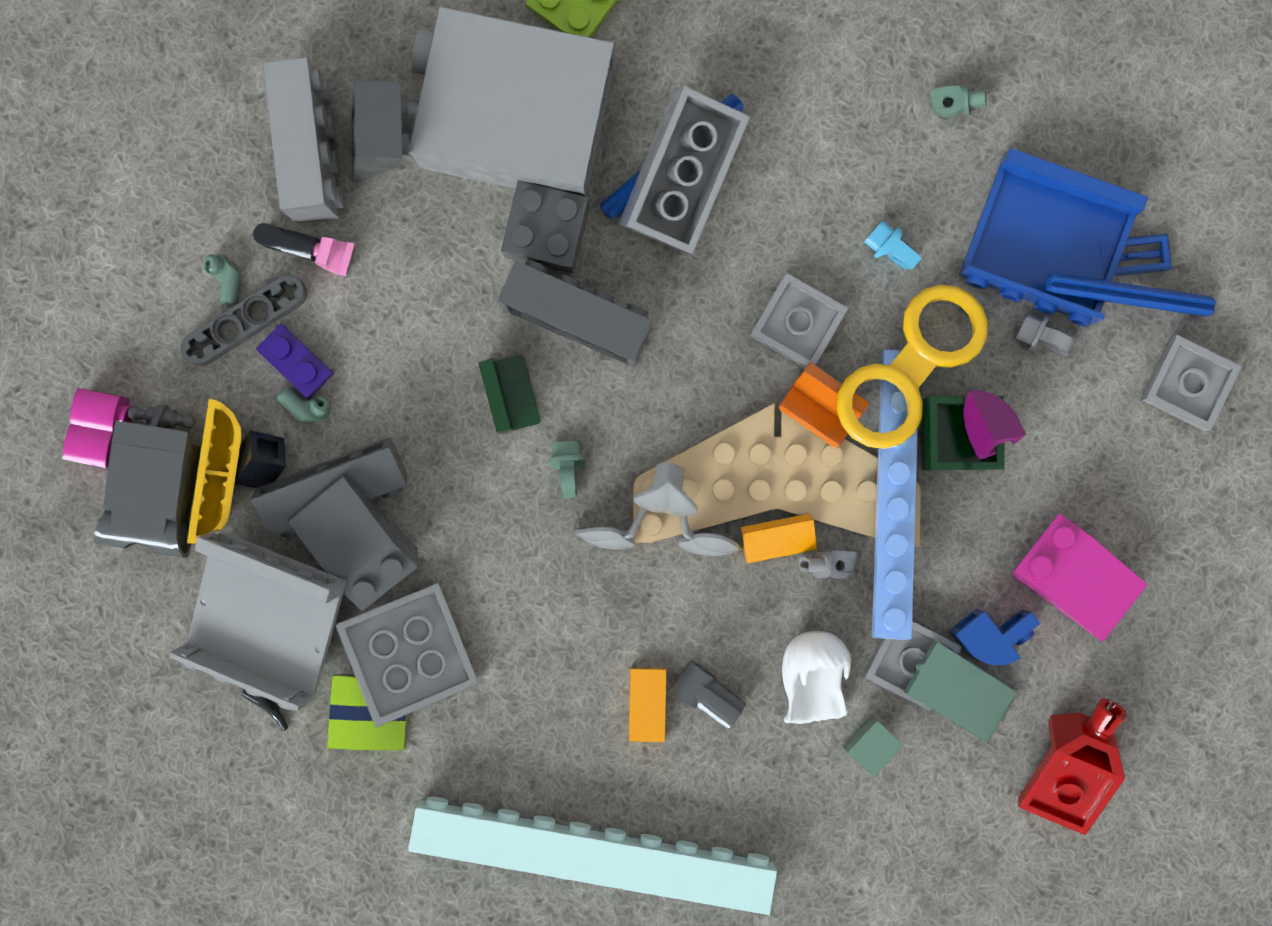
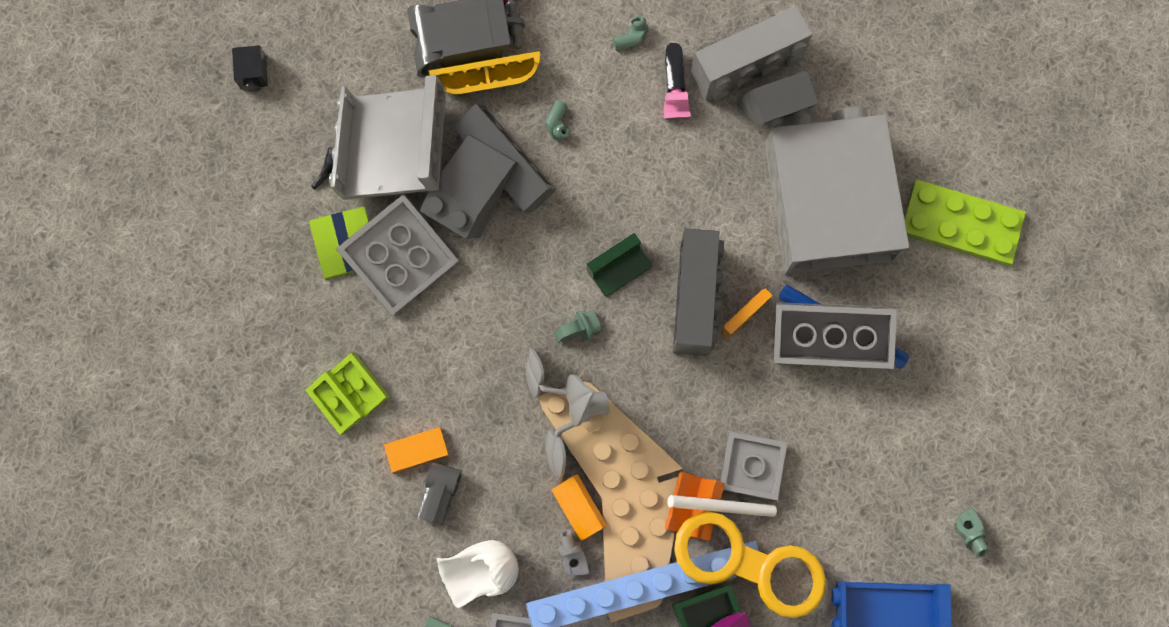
camera: 70 degrees right, 10 degrees down
(104, 761) = (250, 68): none -> black brick
(246, 324) = (603, 61): dark grey beam -> none
(260, 459) = (507, 102): black panel -> none
(295, 361) = (588, 104): dark purple plate -> none
(545, 226) = (754, 249): dark grey brick -> none
(552, 764) = (347, 393): none -> lime slope
(593, 856) = (286, 449): light aqua brick -> none
(618, 264) = (746, 313): none -> light orange tile
(836, 375) = (721, 506): none -> white bar
(887, 241) = (841, 512): medium azure piece -> none

